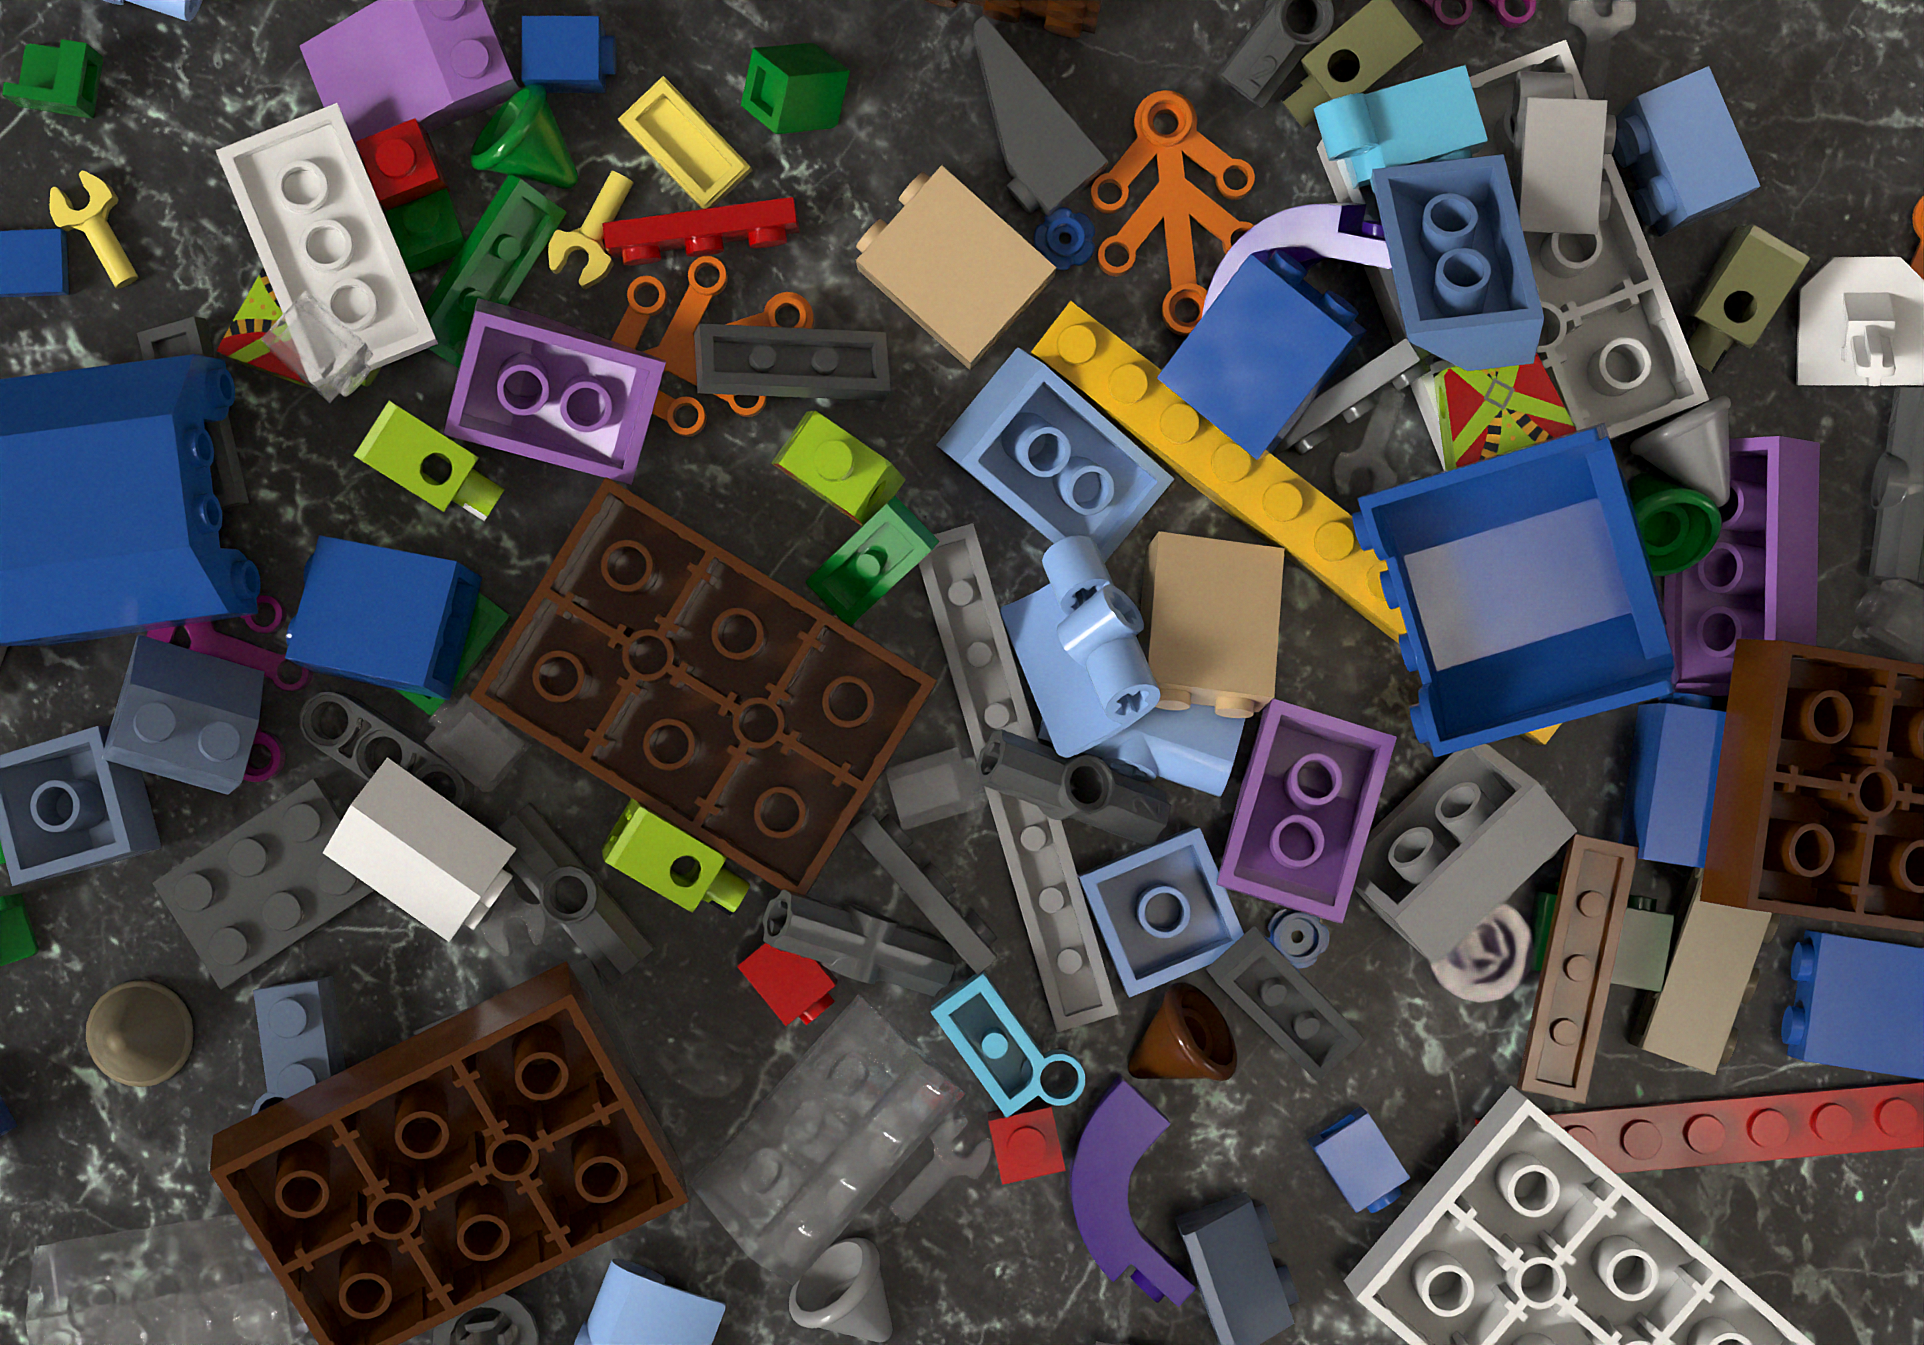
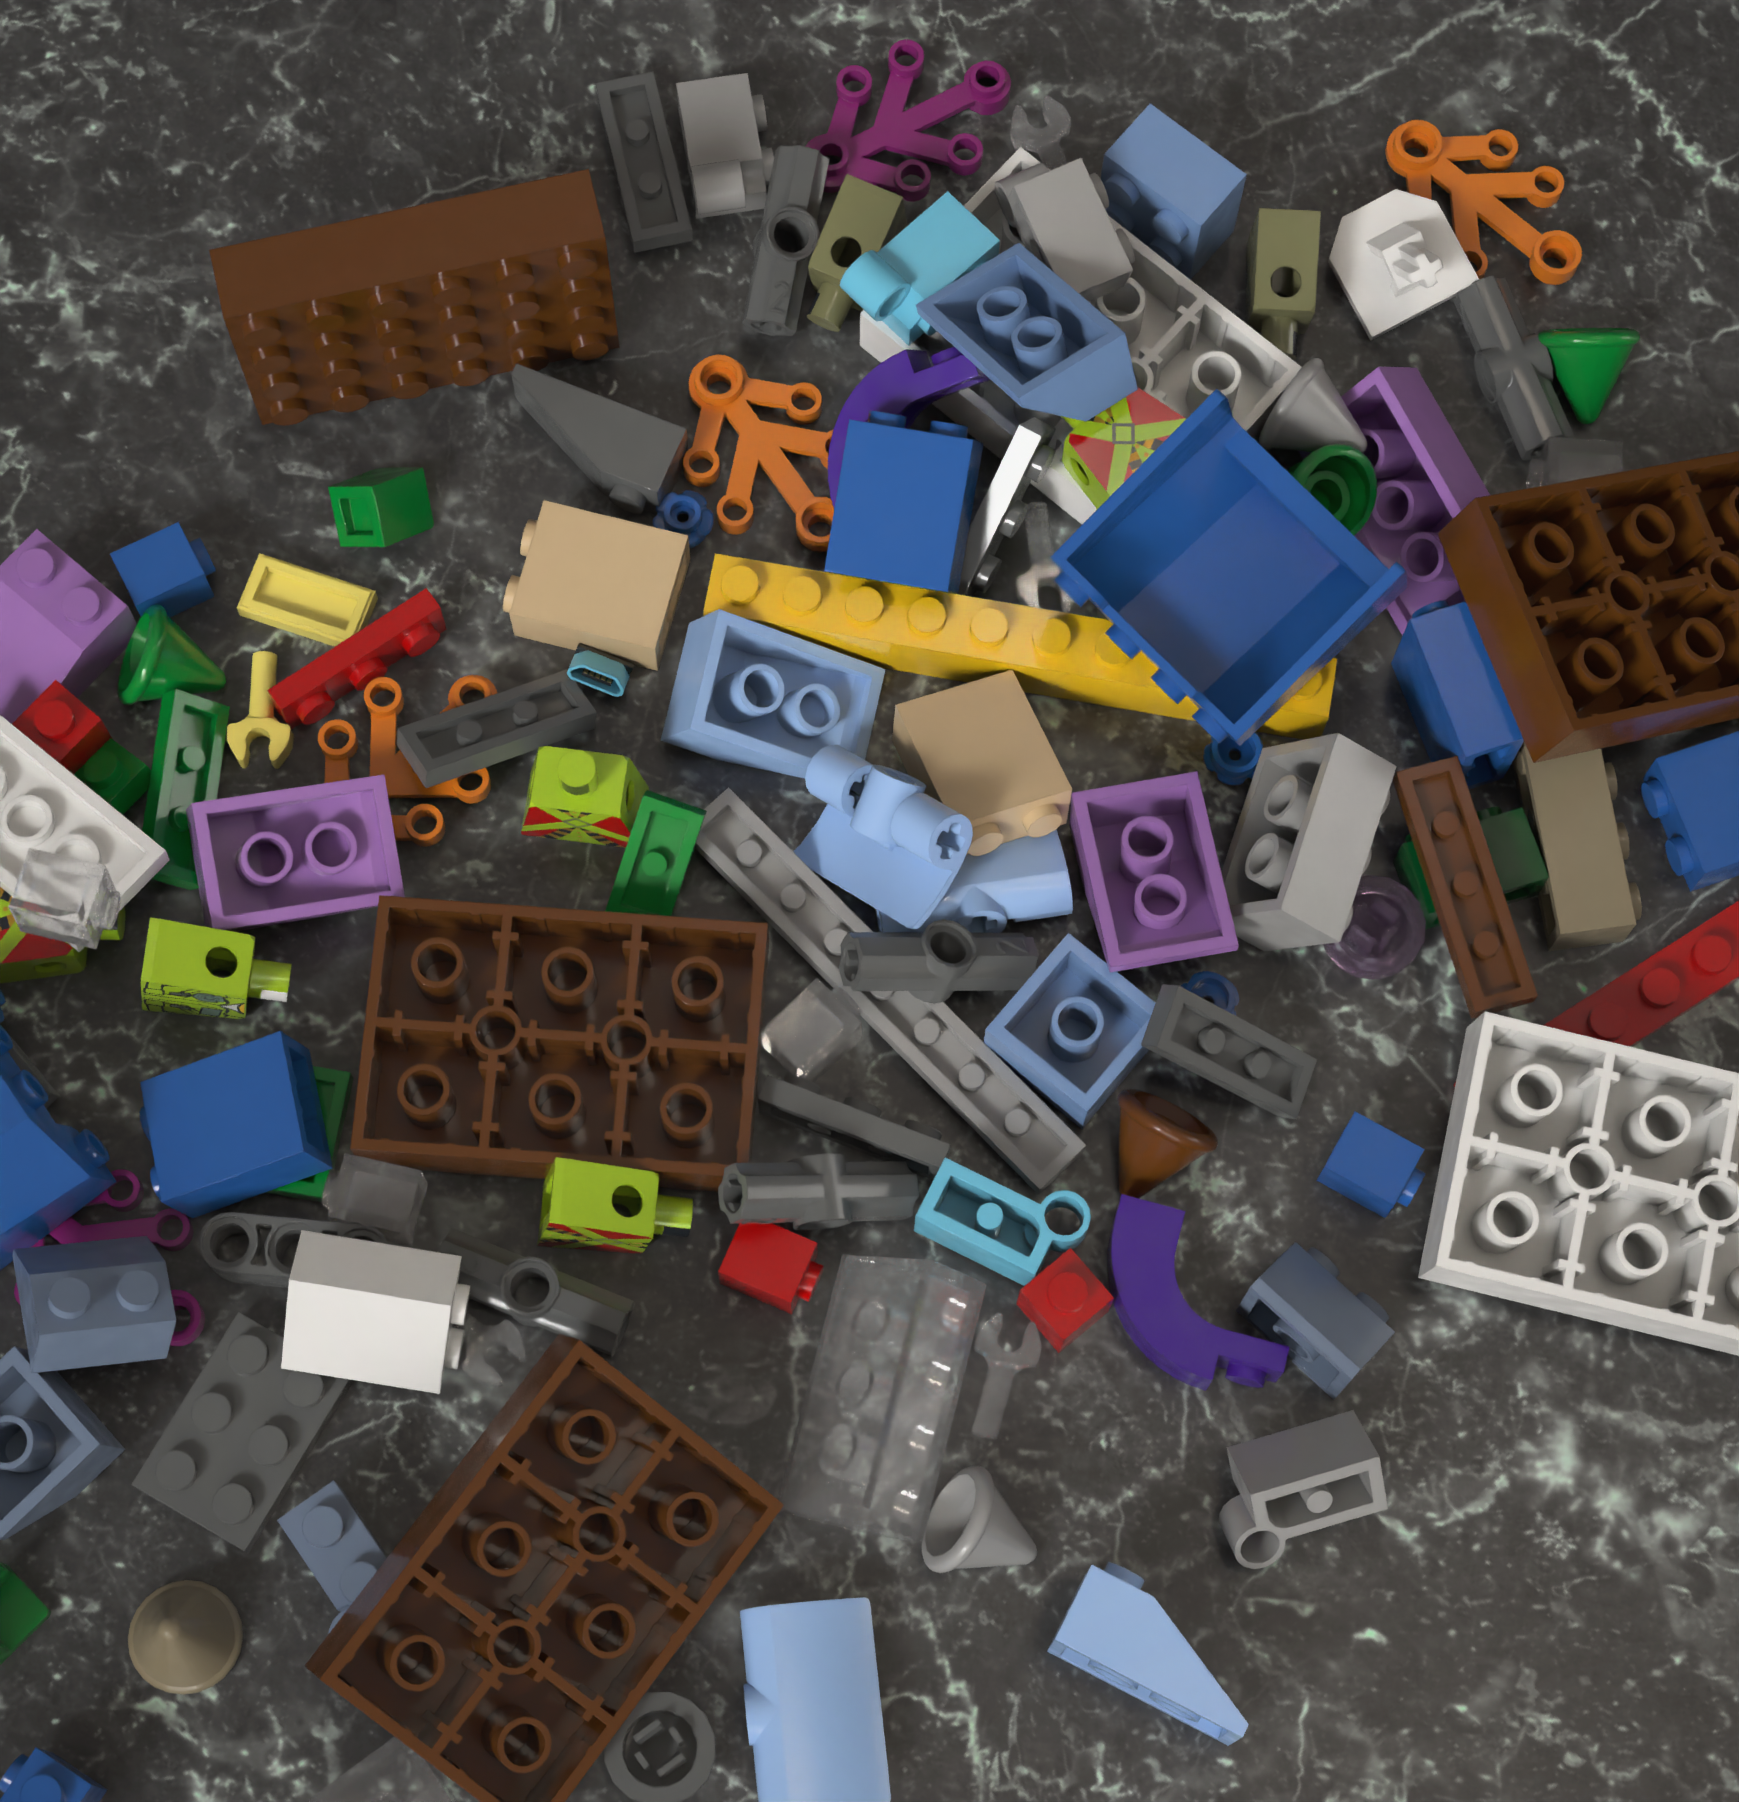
camera: 30 degrees left, 15 degrees down
(915, 348) = (599, 670): none -> medium azure piece

